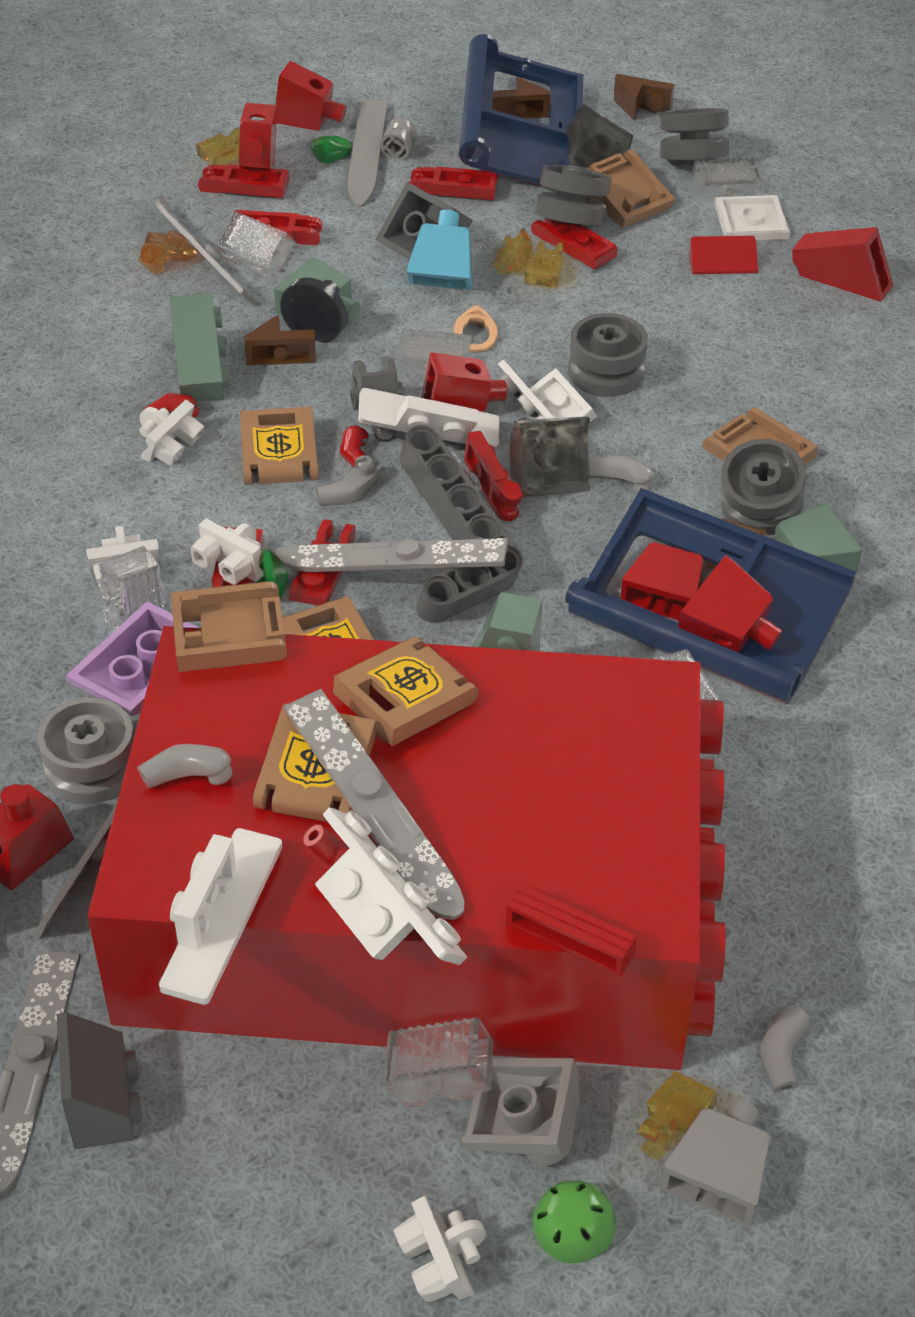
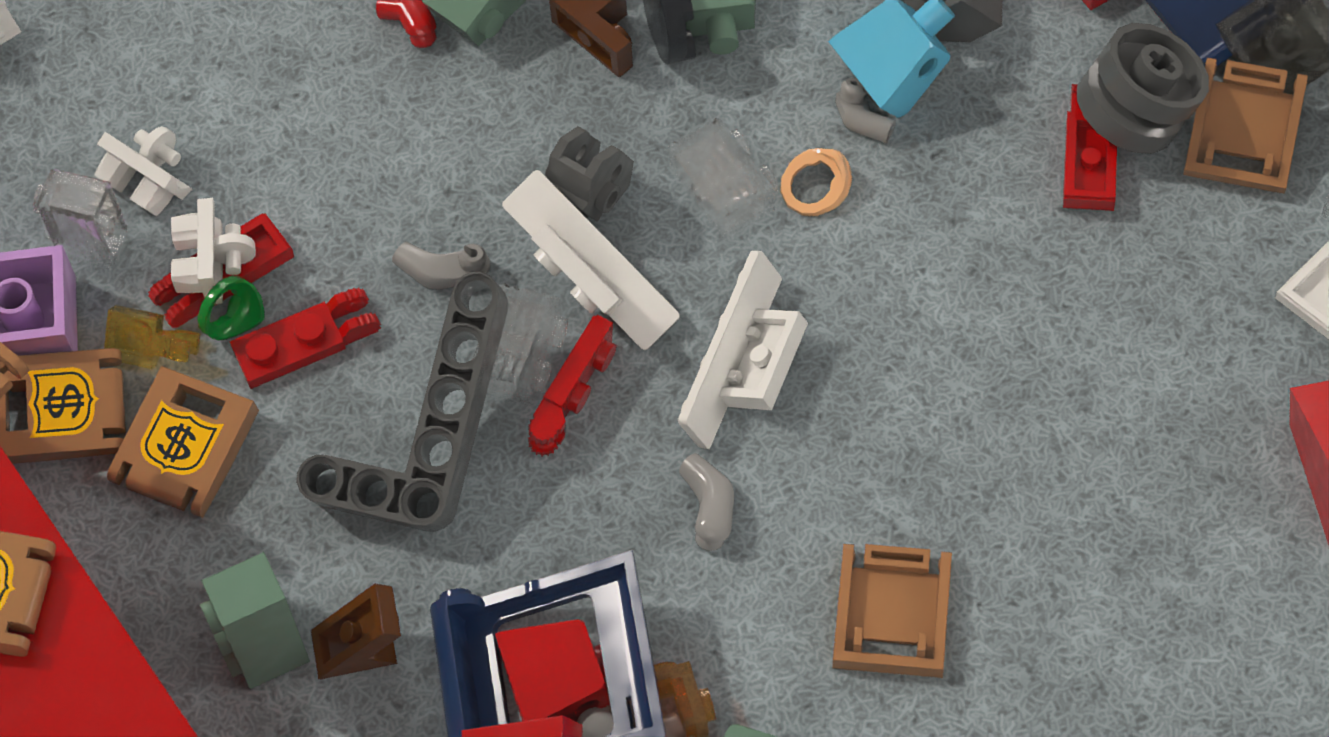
camera: 55 degrees right, 15 degrees up
(162, 429) = (339, 52): white hips -> none
(278, 444) = (433, 162): medium nougat container -> none
(352, 442) = (496, 232): red arm -> none
(394, 555) = (336, 399): light grey piece -> none
(455, 299) = (857, 114): none -> light grey arm
(461, 382) = (671, 248): red torso -> none
(515, 254) = (994, 110): clear yellow plate -> none
(545, 266) = (1005, 160): clear yellow plate -> none
(549, 455) = (635, 419): clear smoke slope -> none
(560, 625) = (358, 634): none -> reddish brown slope
(607, 354) = (883, 342): dark grey wheel -> none
(723, 255) = (1227, 320): red slope -> none
(762, 484) = (781, 666): dark grey wheel -> none

